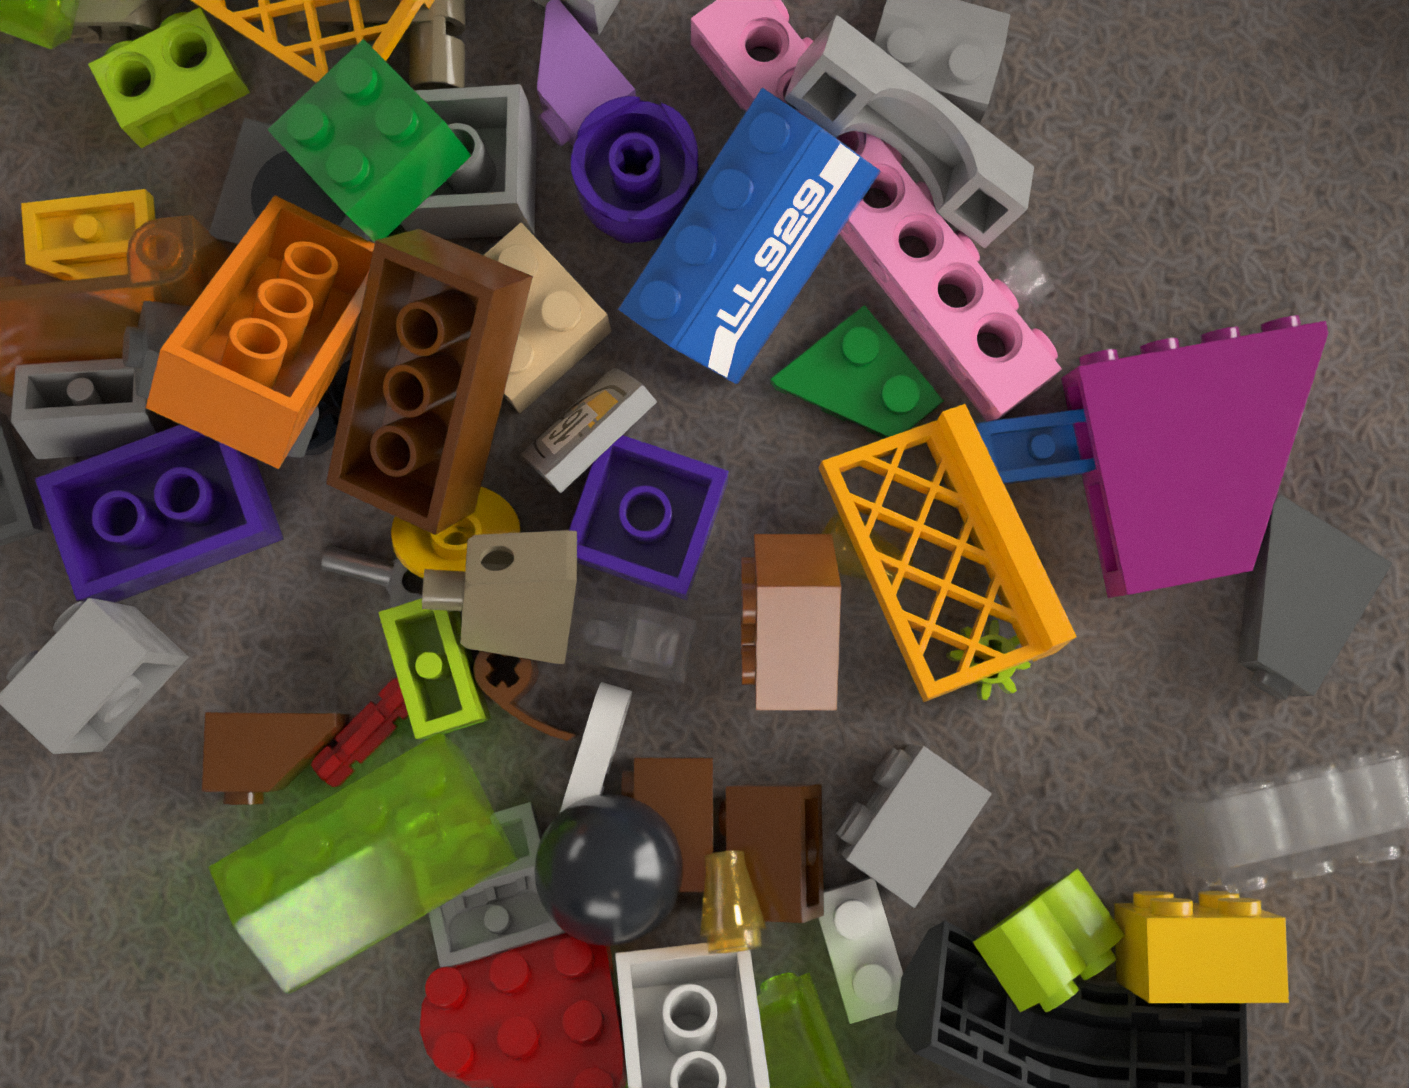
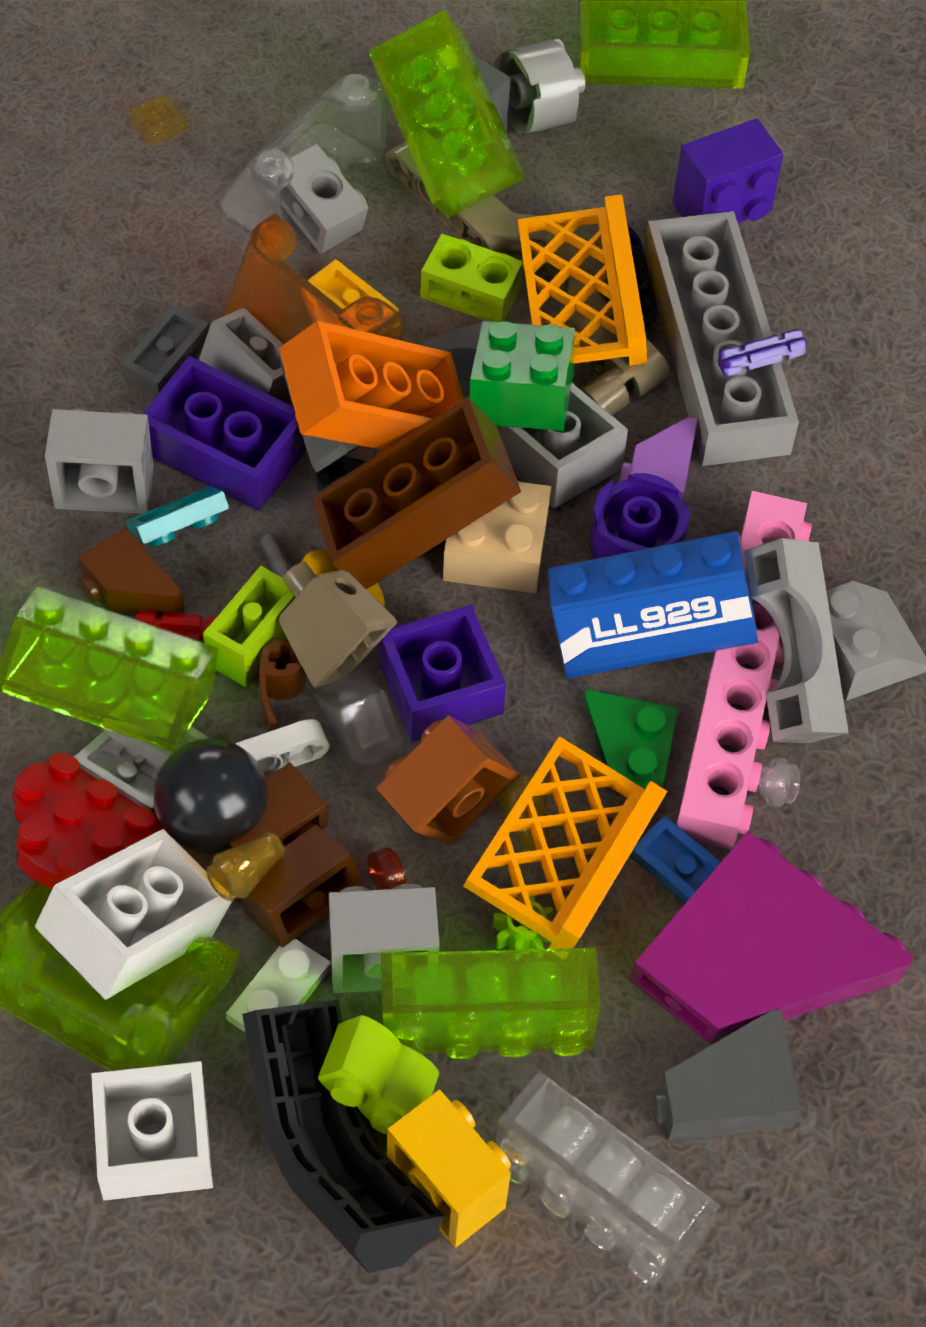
camera: 45 degrees right, 25 degrees down
(223, 635) = (193, 509): none -> plate
(588, 428) = (440, 597): light grey slope -> none
(823, 747) = (385, 869): none -> clear red tile
(1063, 768) = (491, 1000): none -> clear neon green brick

